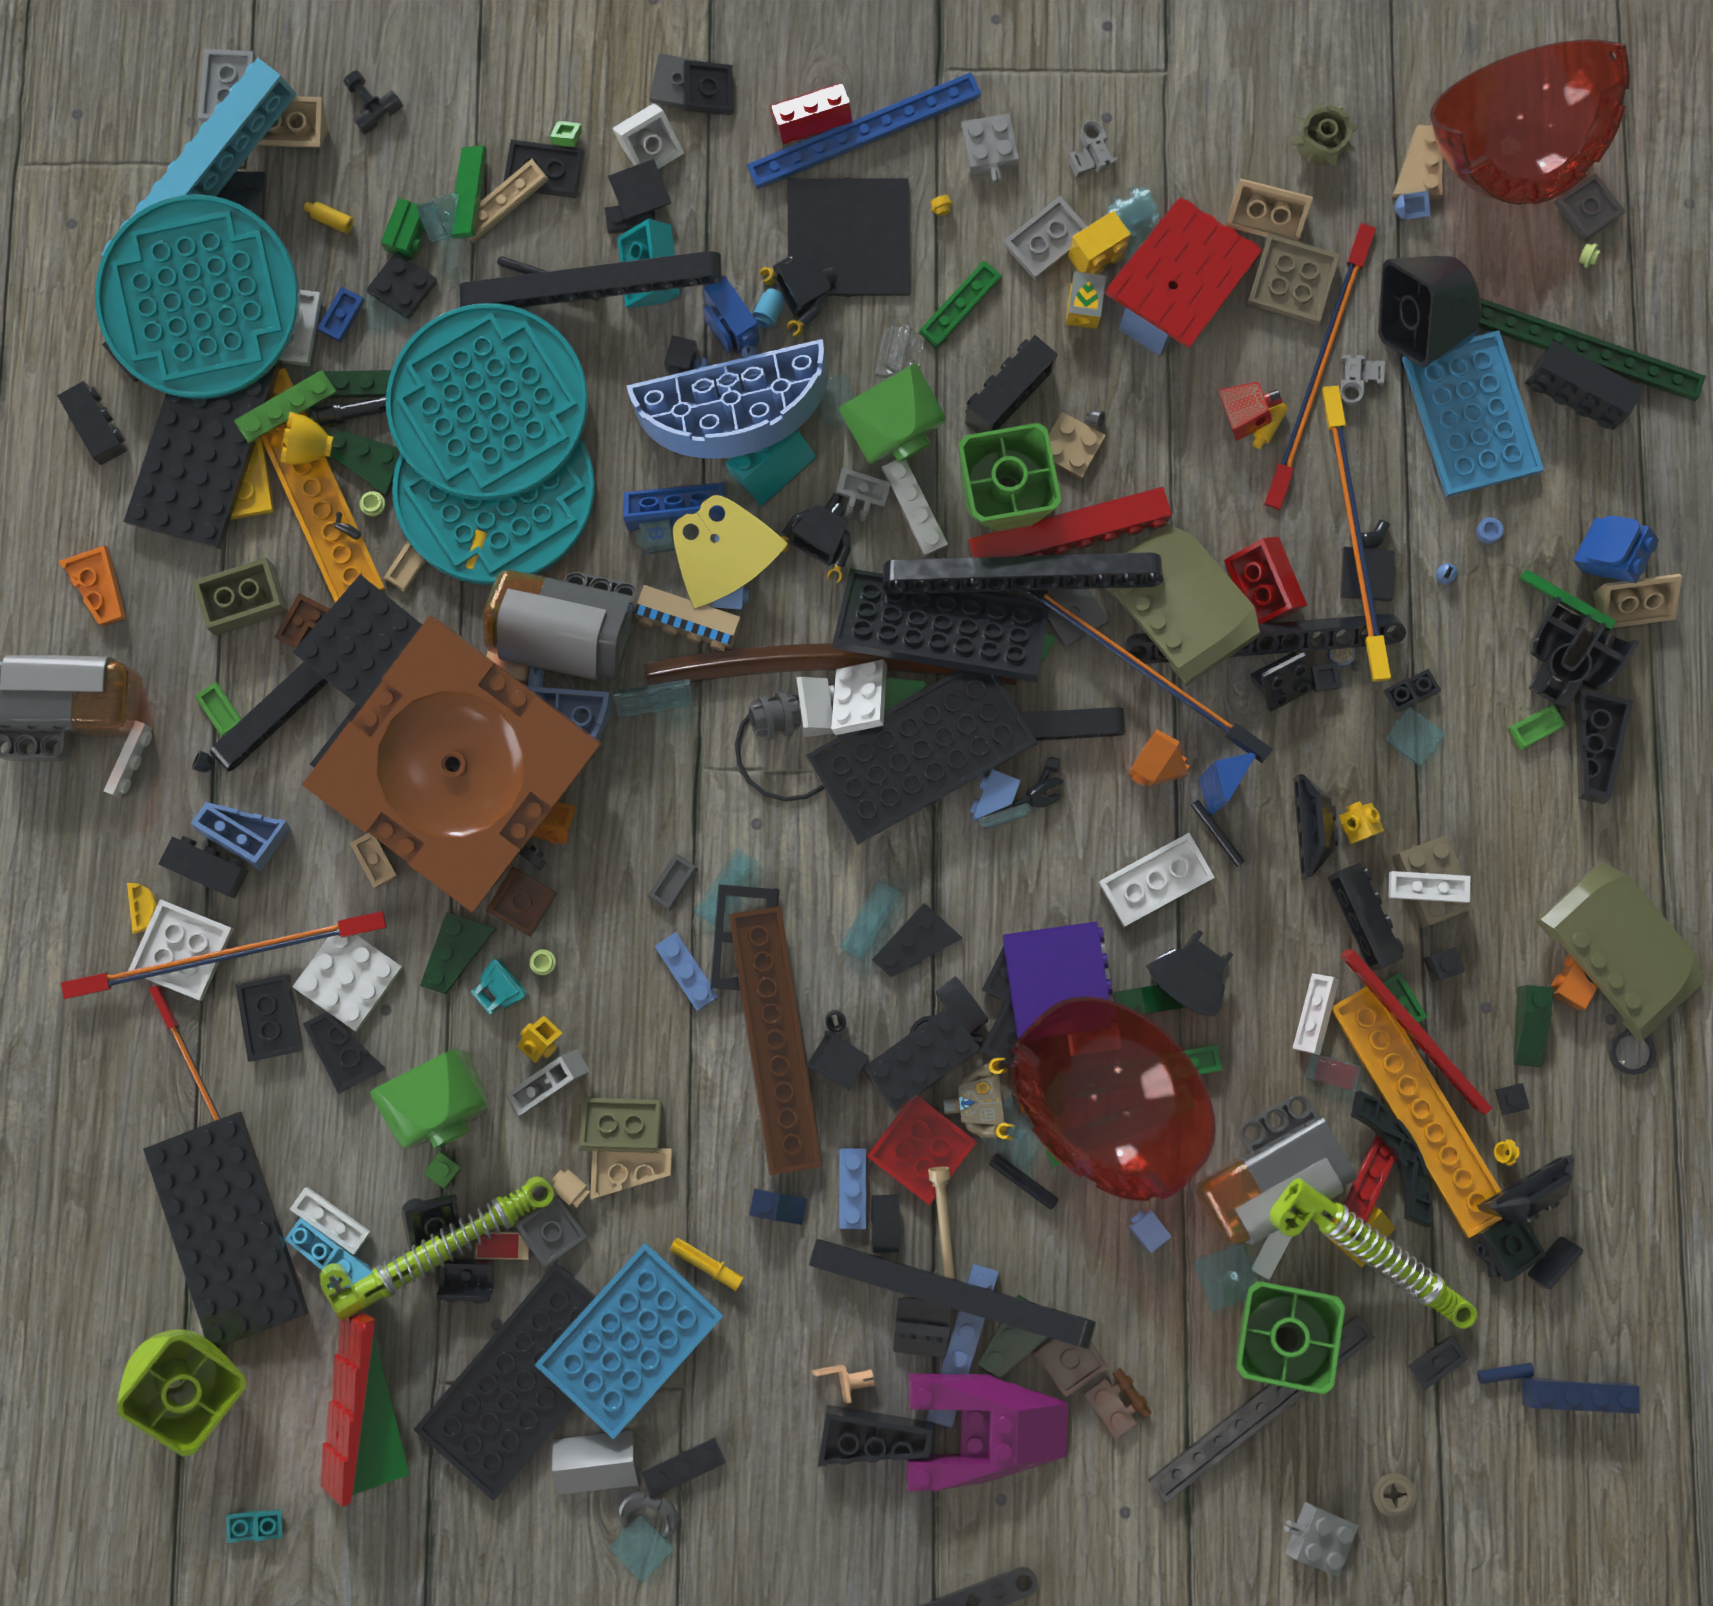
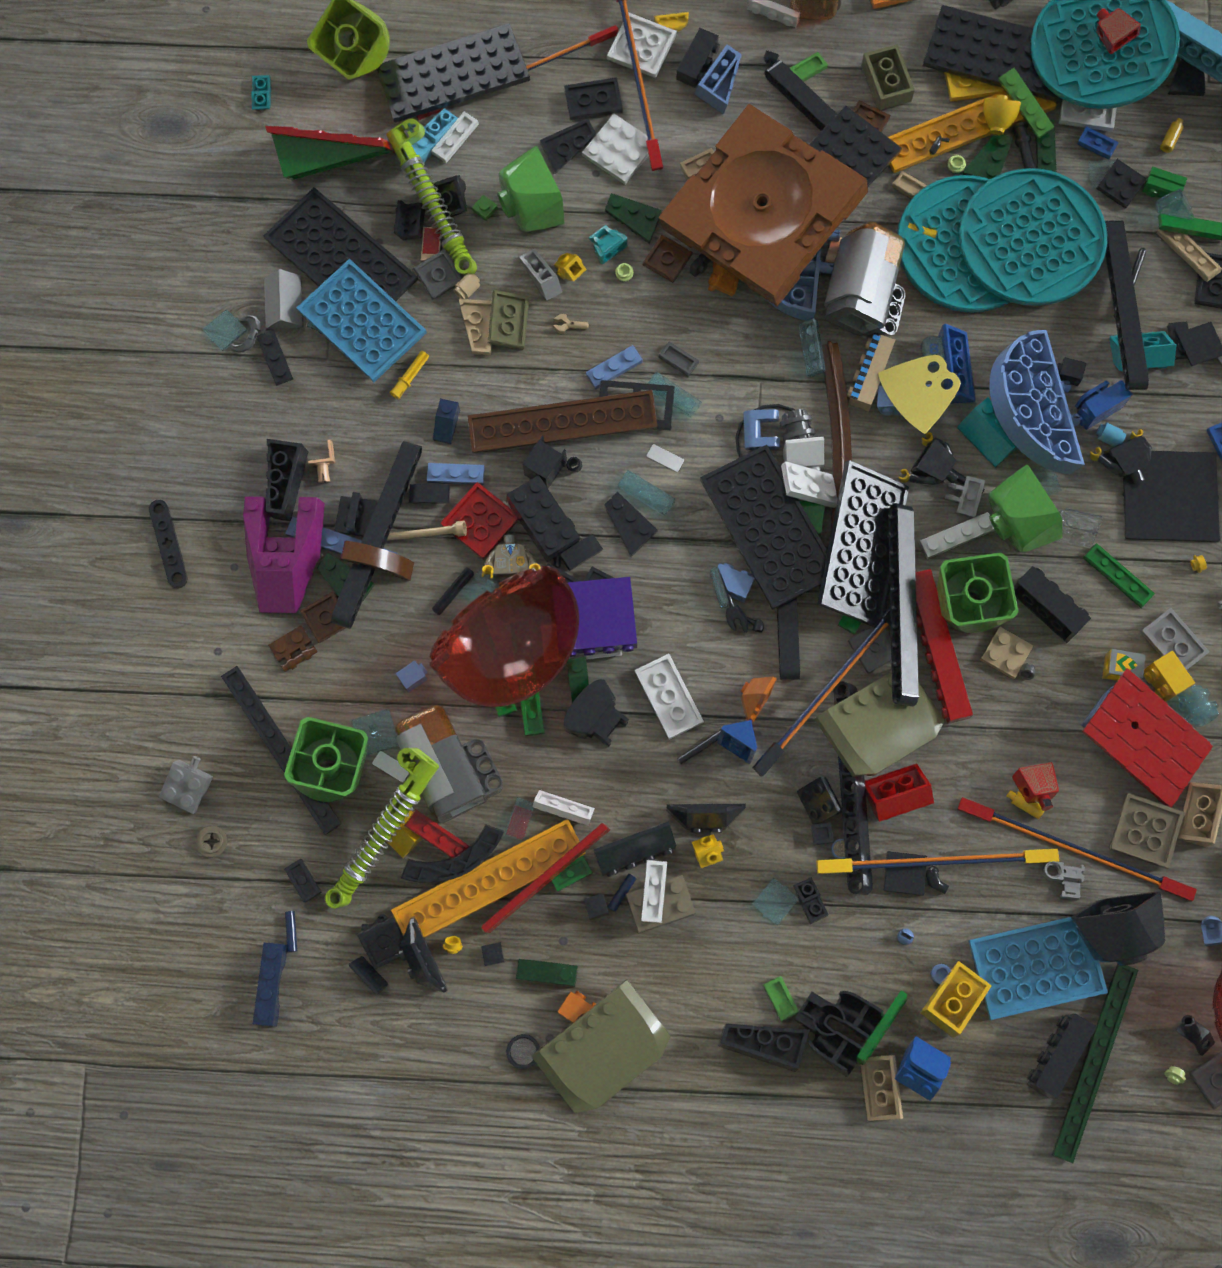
camera: 95 degrees right, 5 degrees down
(183, 279) = (1116, 29): none -> red torso
(623, 1036) = (568, 324): none -> tan bar
(777, 776) = (752, 429): none -> medium blue connector
(817, 896) = (665, 458): none -> white sticker
(994, 1290) = (377, 558): none -> reddish brown slope
(1419, 933) = (621, 892): none -> dark blue piece
(1525, 510) = (956, 1000): none -> yellow slope
(1537, 231) = (1195, 1034): none -> black bracket

